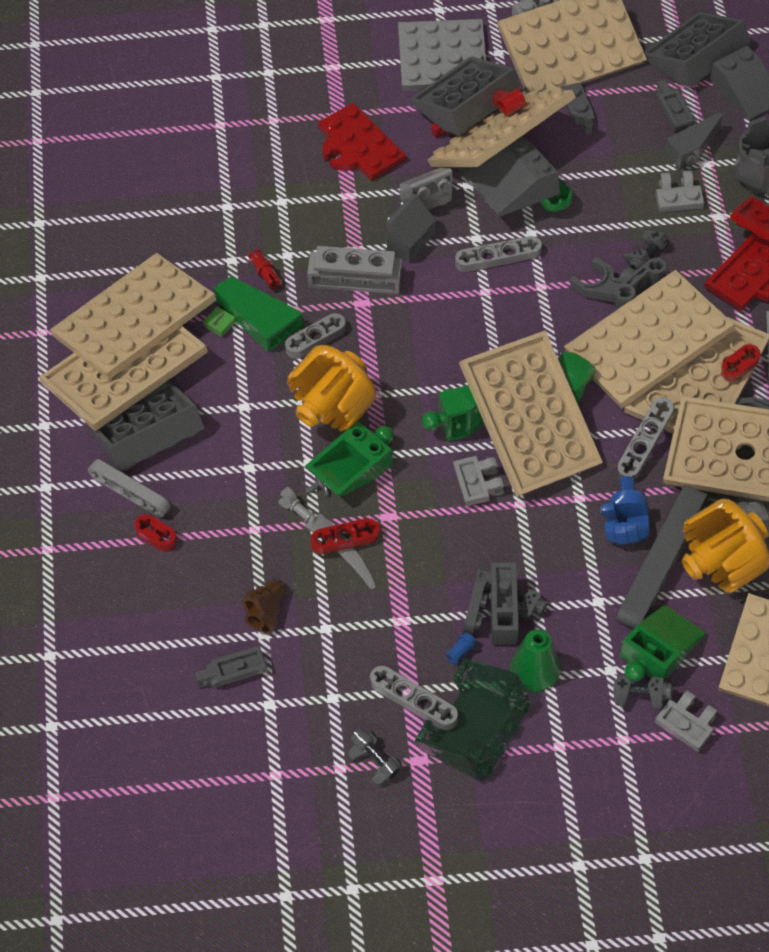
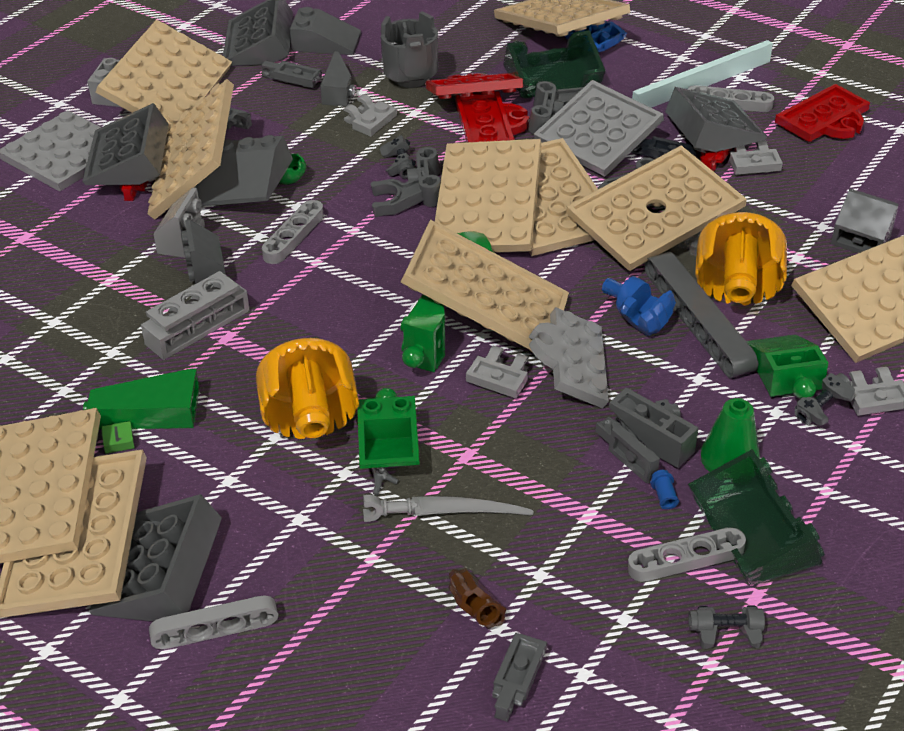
camera: 50 degrees left, 15 degrees down
(157, 529) = (288, 636): red beam -> none
(265, 269) = (109, 370): red pin -> none
(319, 327) = (225, 392): light grey beam -> none
(352, 528) = (460, 502): red beam -> none
(358, 143) = (71, 241): red plate -> none
(509, 101) = (179, 122): red piece -> none
(532, 510) = (575, 354): none -> light grey plate
(646, 439) = (573, 255): light grey beam -> none
(737, 359) = (567, 163): red beam -> none

